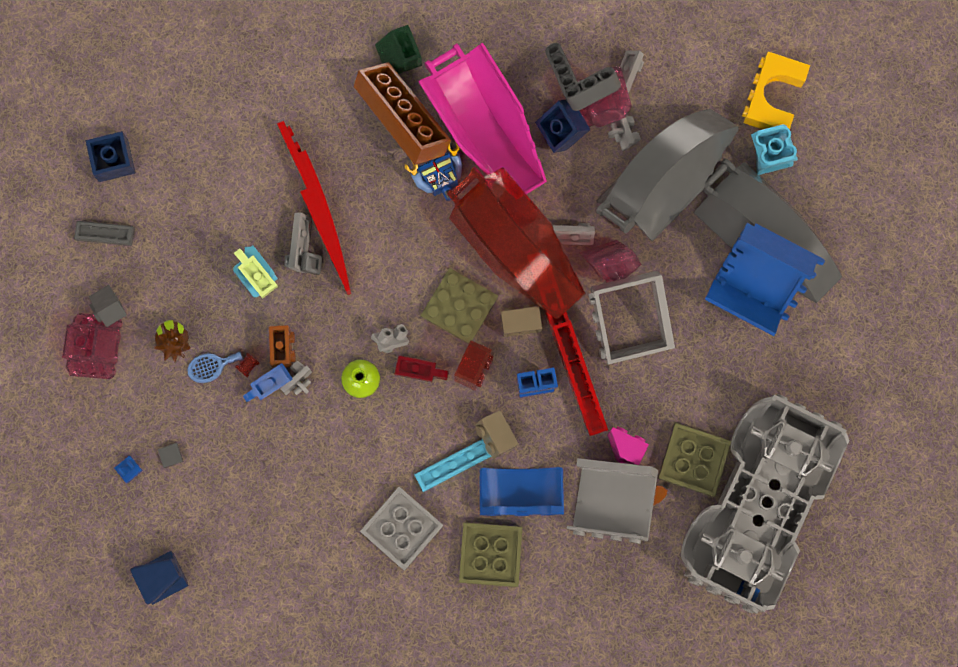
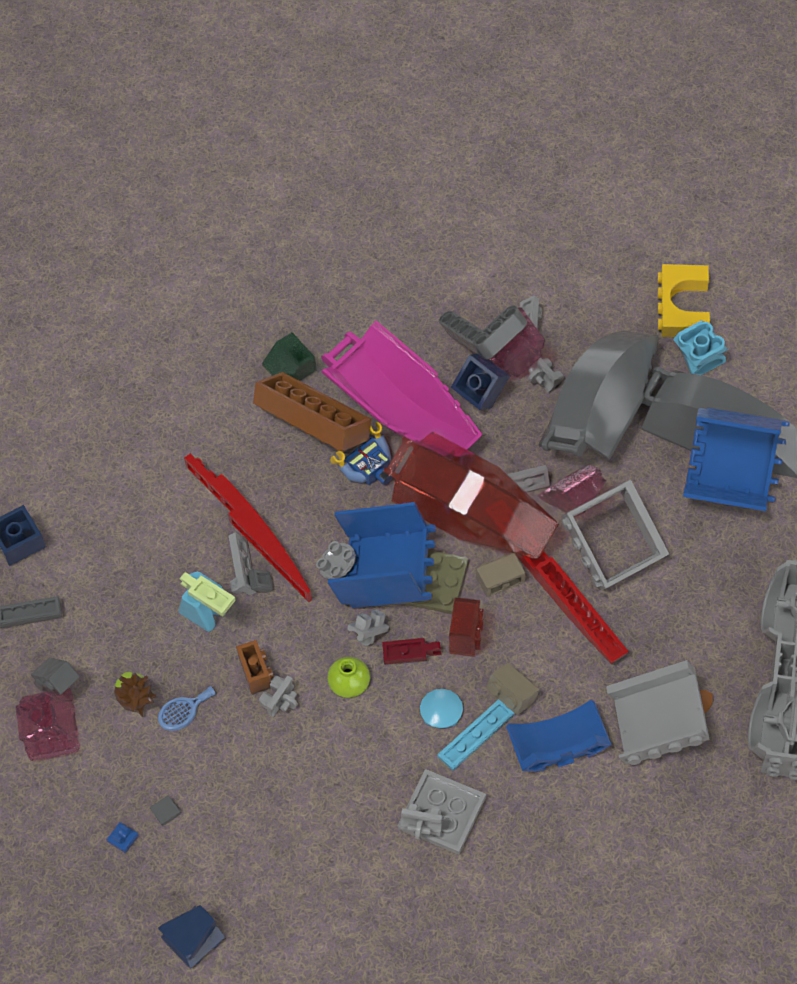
camera: 10 degrees left, 20 degrees down
(247, 365) = (222, 696): clear red bush -> none
(268, 383) = (252, 704): plate -> none
(378, 539) = (421, 822): none -> light grey hips
(382, 264) = (336, 560): none -> light grey dish
(424, 279) = (389, 557): none -> blue windscreen
(431, 432) = (441, 708): none -> medium azure dish
(490, 554) = (547, 810): olive plate -> none
(541, 383) = (538, 621): blue hips -> none
(625, 447) = (651, 655): dark pink slope -> none
(694, 460) = (729, 657): olive plate -> none

